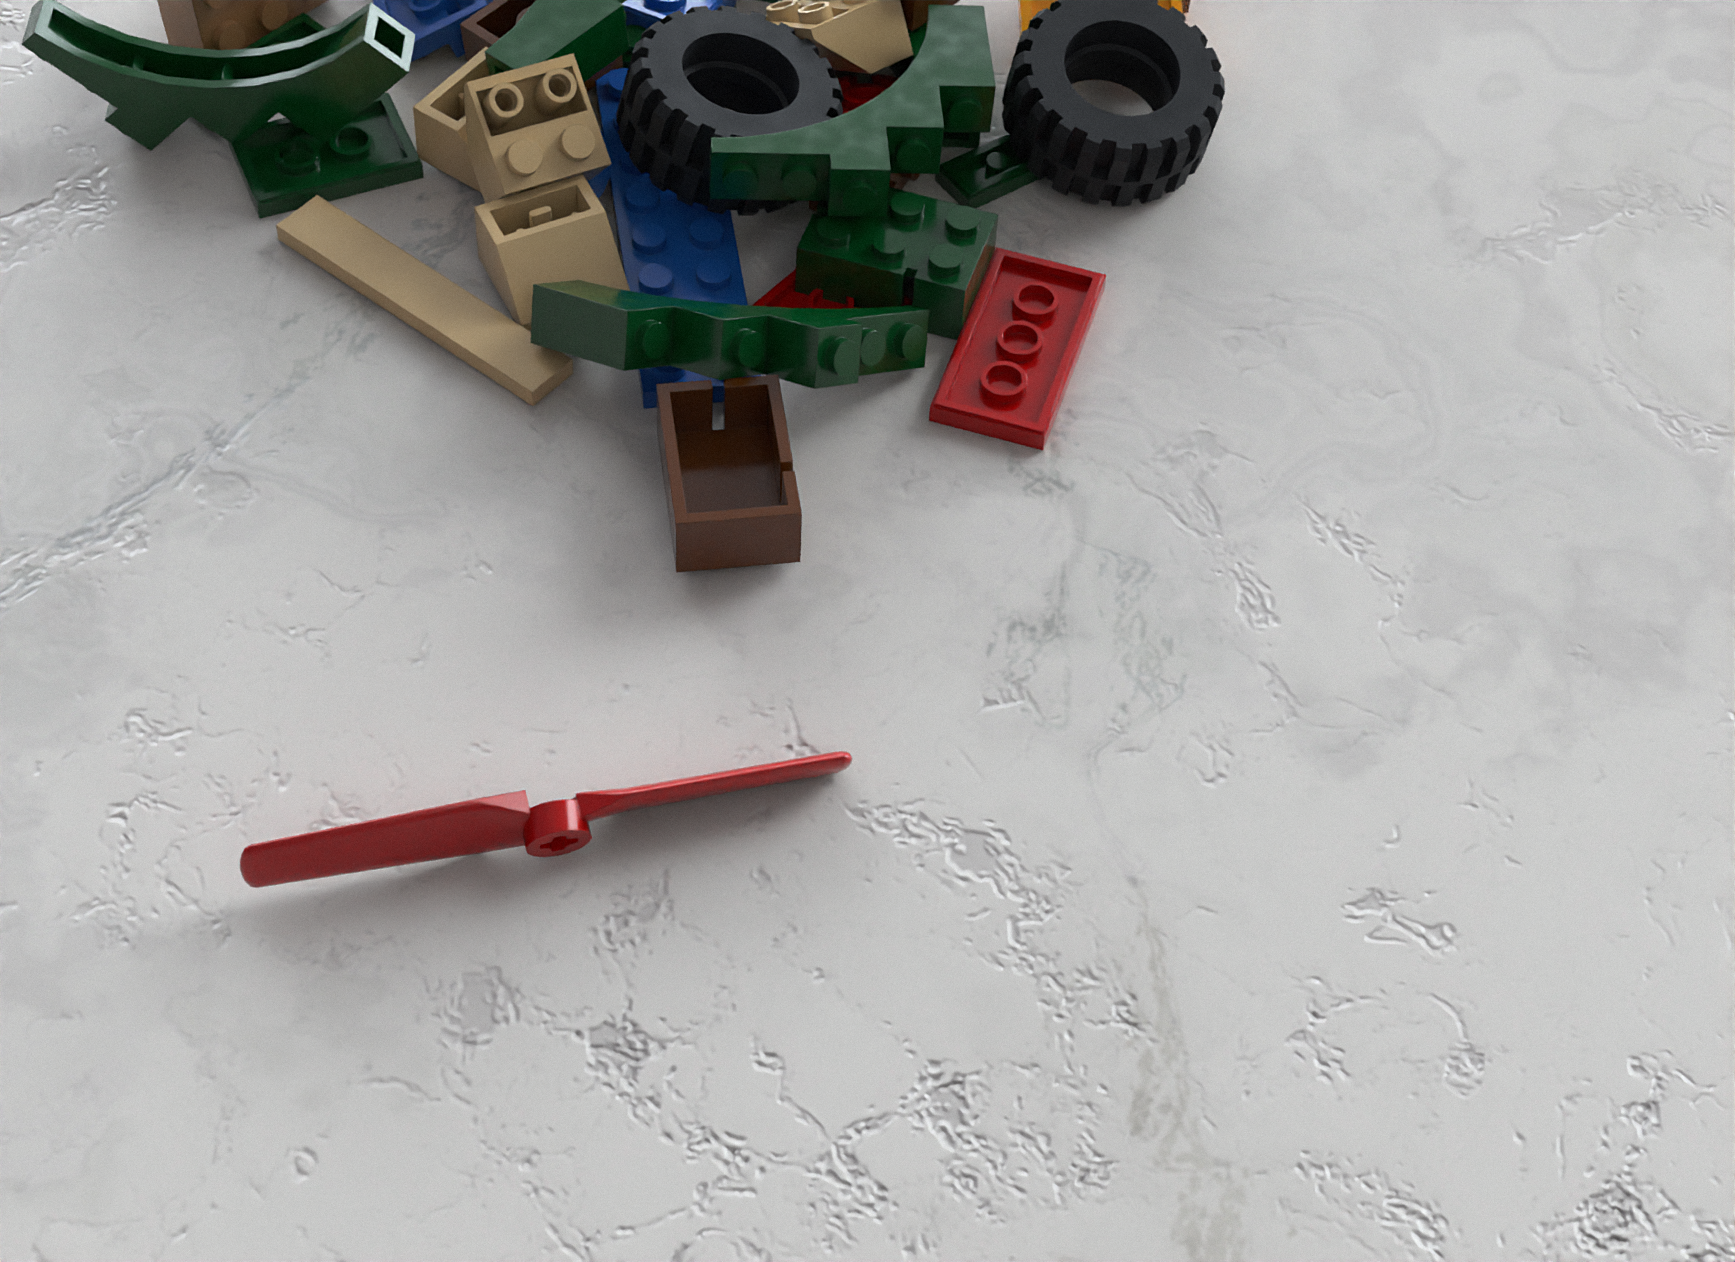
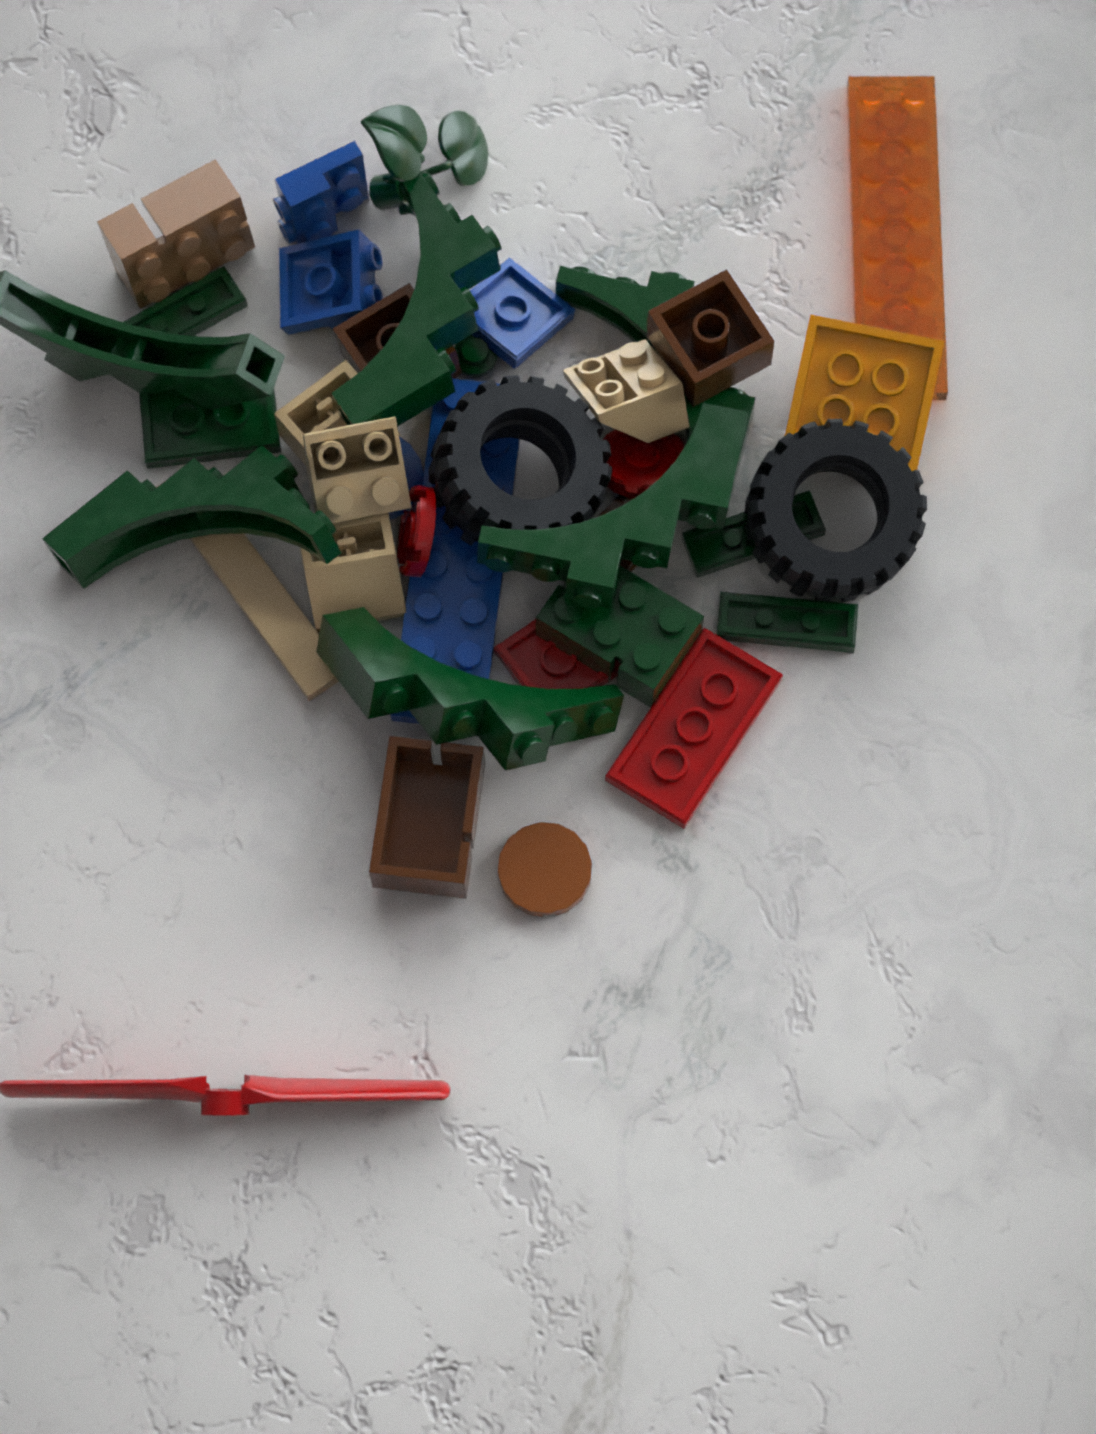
camera: 20 degrees right, 20 degrees up
(337, 210) = (192, 503): none -> dark green arch
(626, 193) = (417, 532): none -> red tile
(888, 515) = (544, 869): none -> dark orange tile
(1092, 229) = (787, 622): none -> dark green tile

